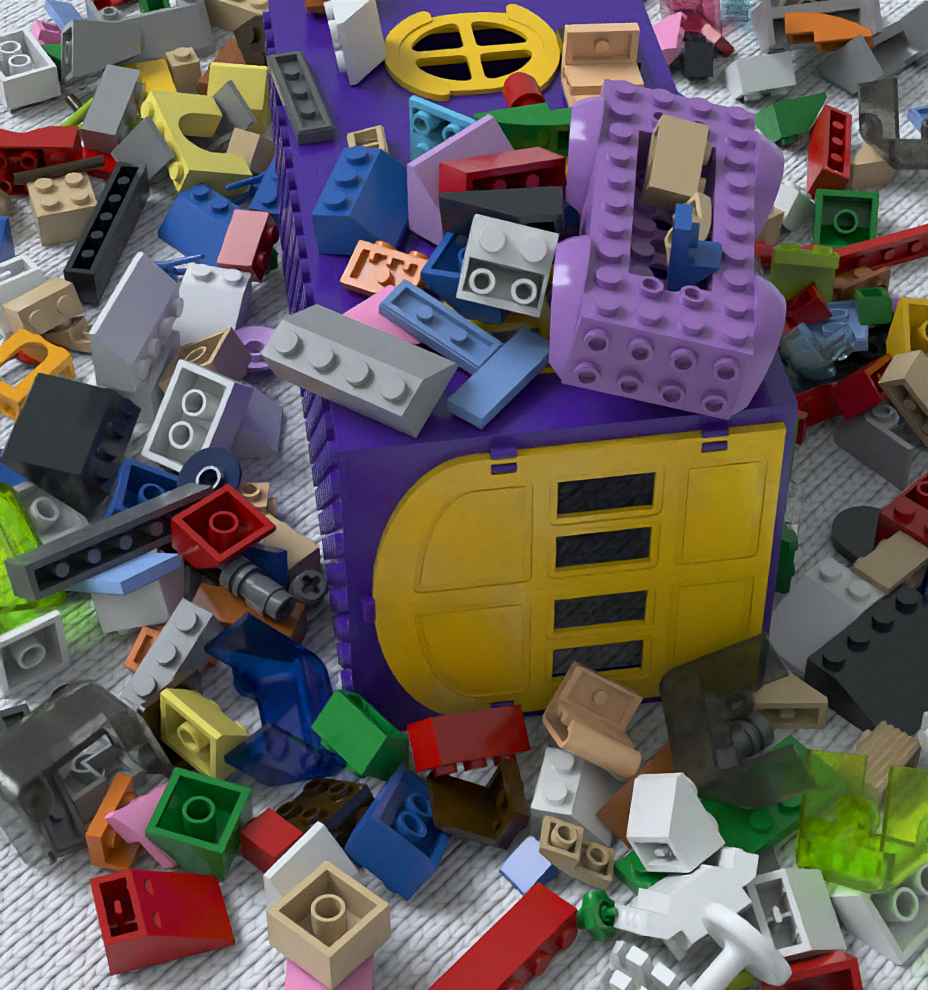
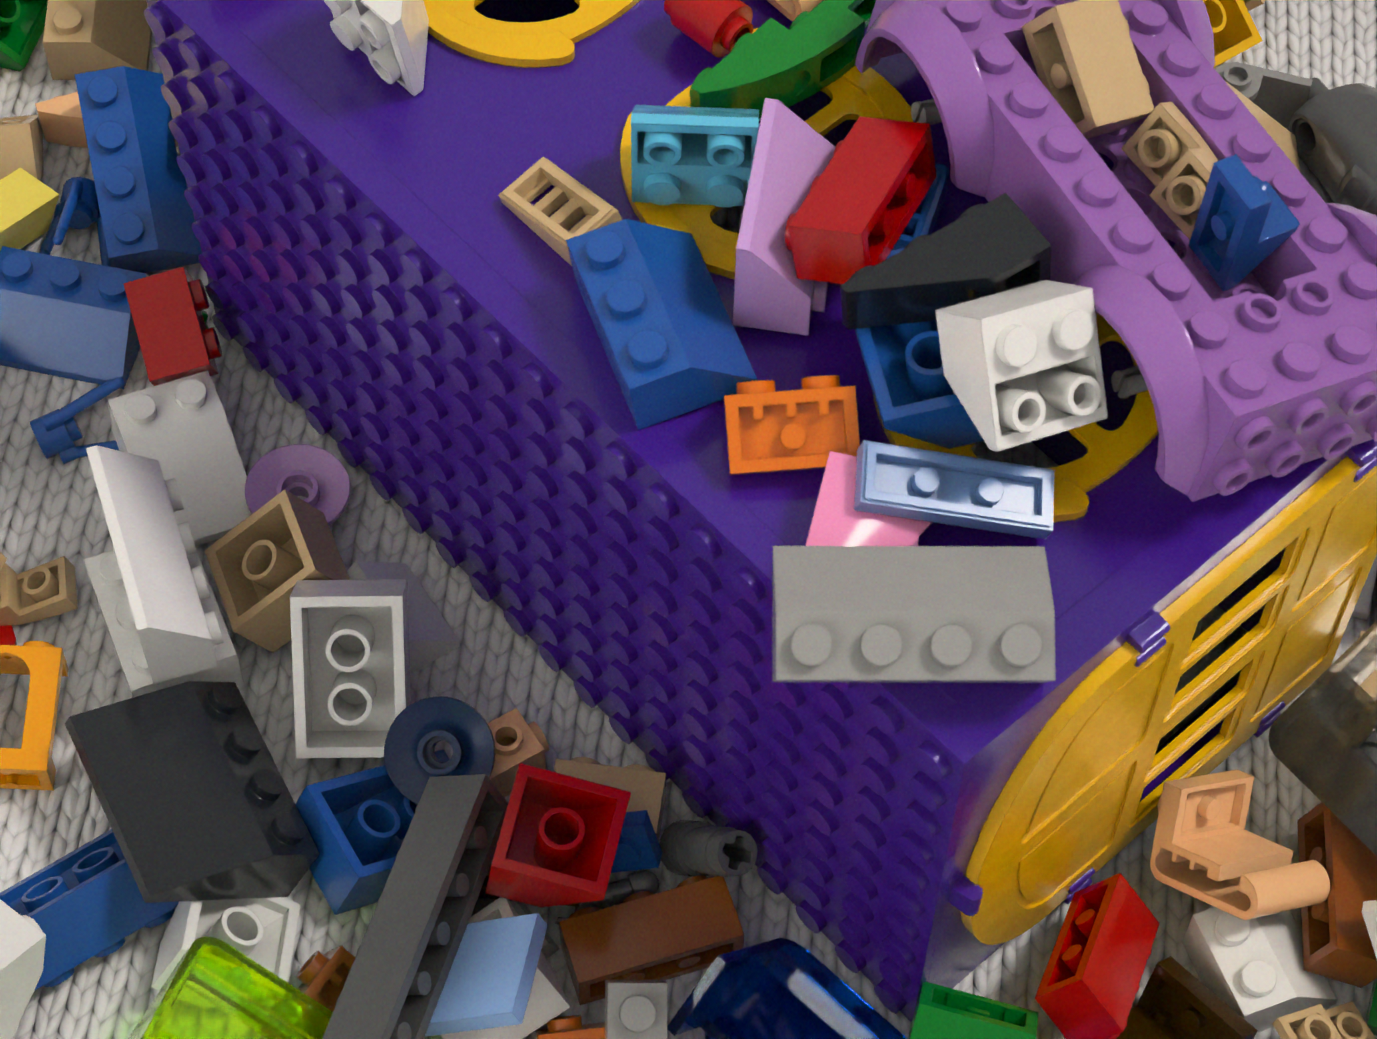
camera: 35 degrees left, 15 degrees up
(259, 591) = (669, 895): dark grey axle -> none
(300, 97) = (368, 156): dark grey tile -> none
(500, 378) = (1086, 525): medium blue tile -> none

